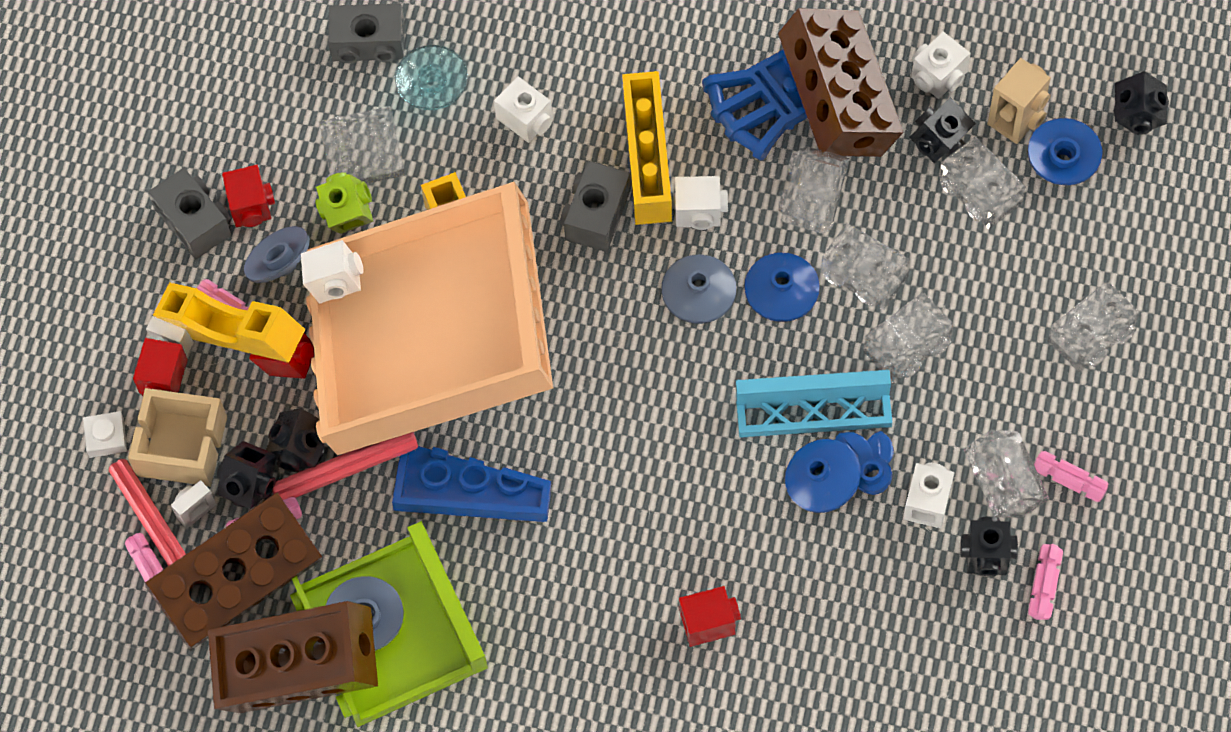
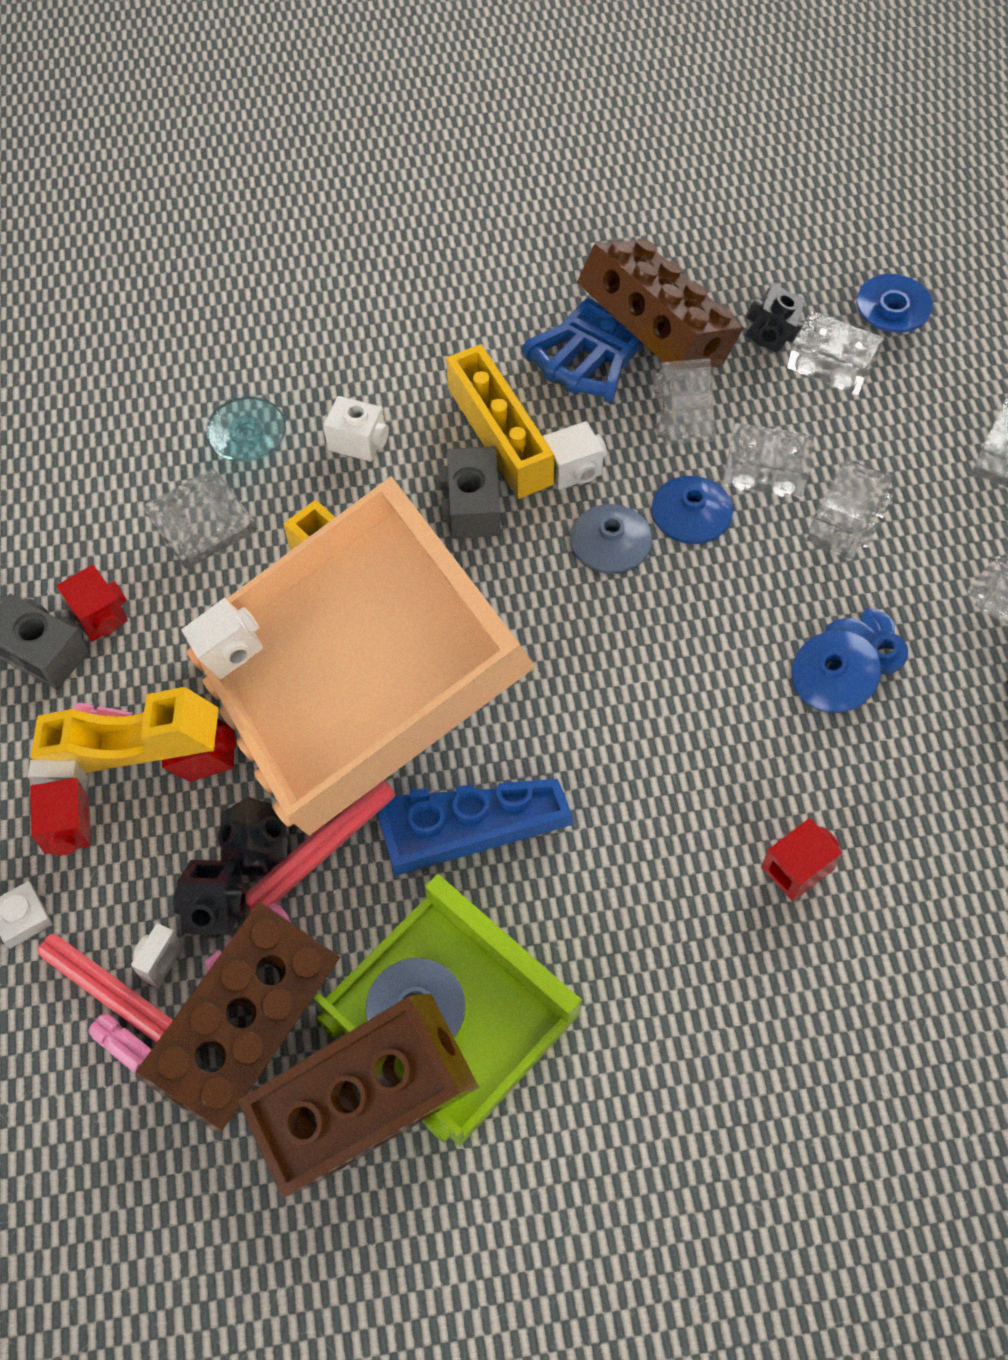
camera: 25 degrees left, 5 degrees down
(182, 437) = (114, 879): tan piece -> none
(276, 254) = (150, 650): sand blue dish -> none
(344, 202) = (203, 572): lime brick -> none
(351, 22) = (160, 409): dark grey brick -> none
(809, 390) = (780, 591): medium azure fence -> none
(928, 494) = (954, 651): white brick -> none
(940, 65) = (741, 266): white brick -> none
(1019, 101) = (834, 267): tan brick -> none
(1141, 103) = (939, 241): black brick -> none

